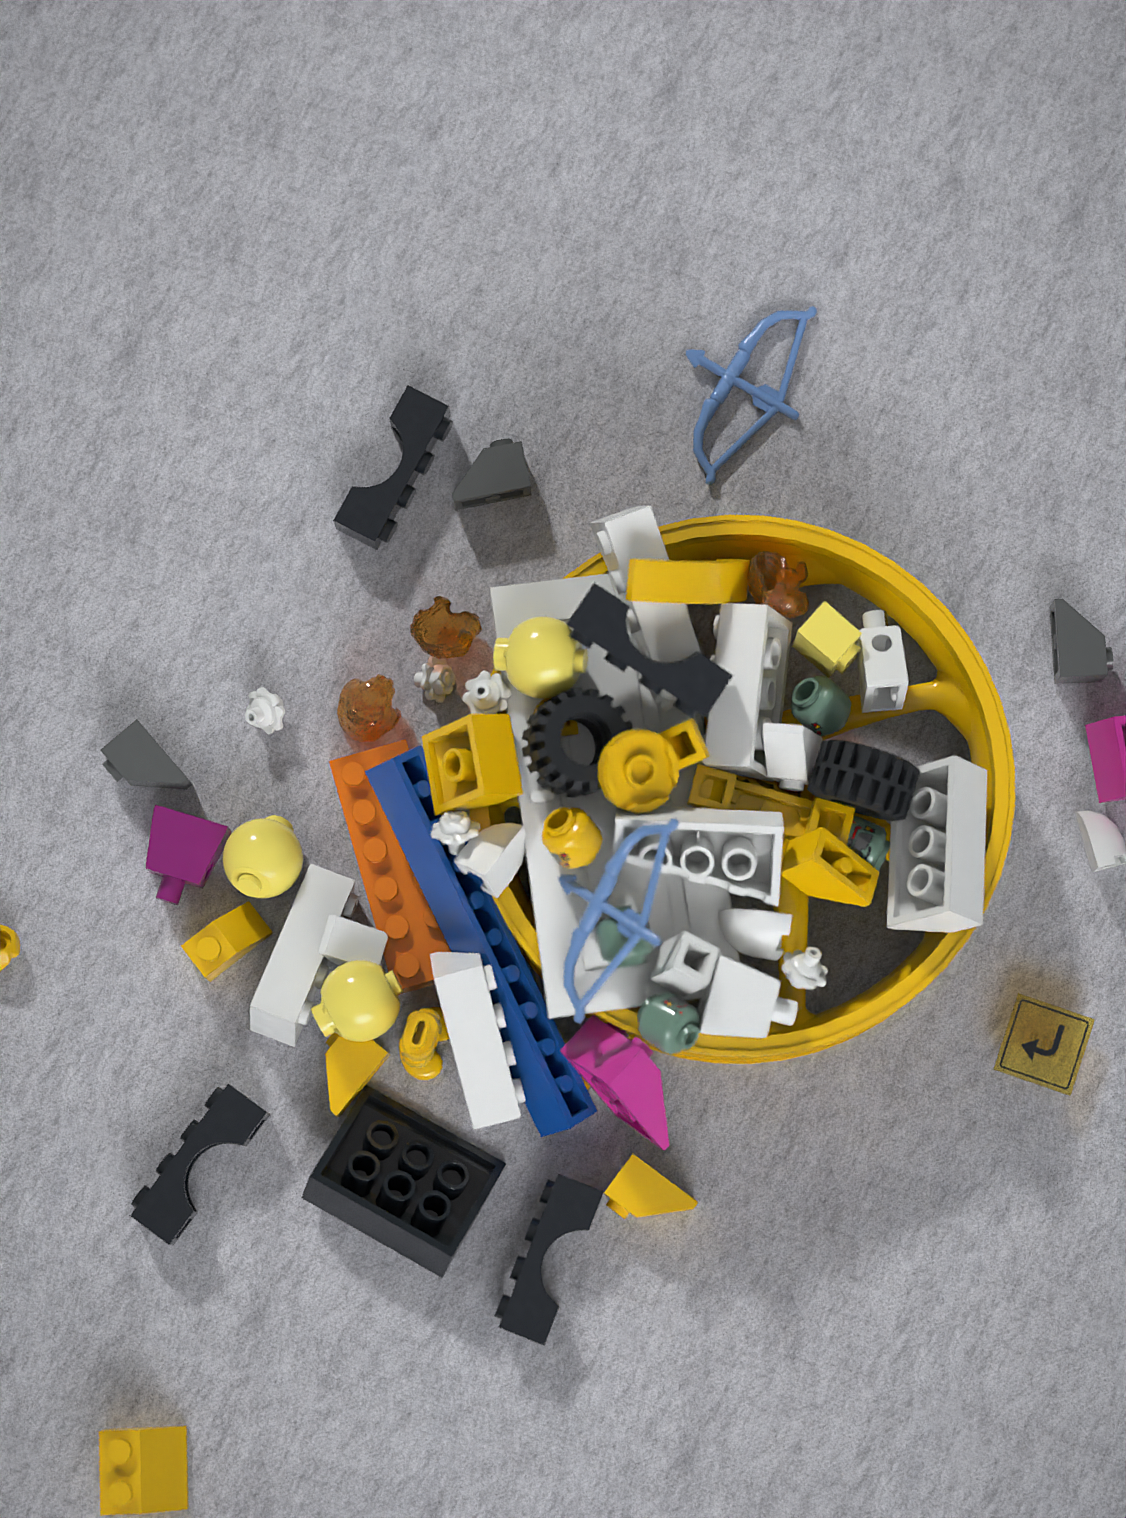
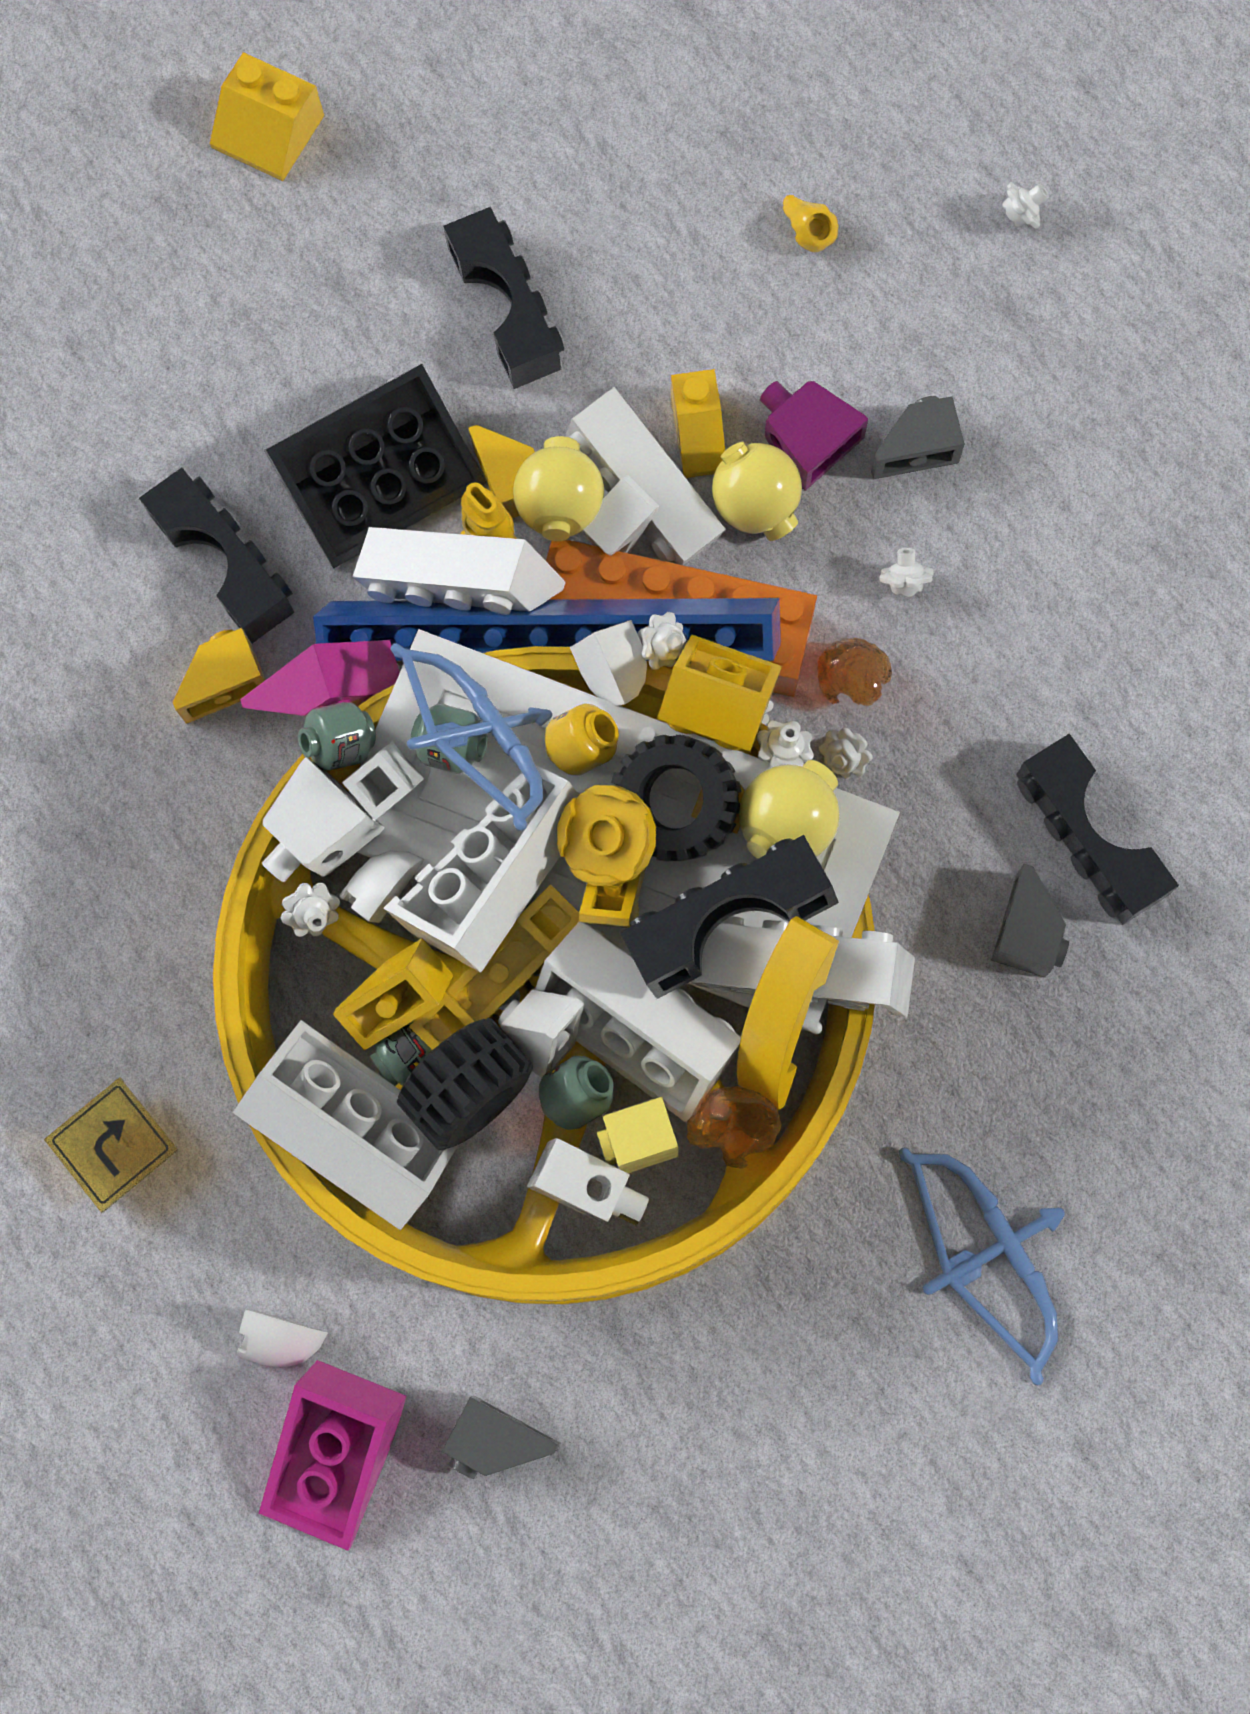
camera: 125 degrees right, 5 degrees down
(444, 632) = (893, 778): clear orange hair -> none

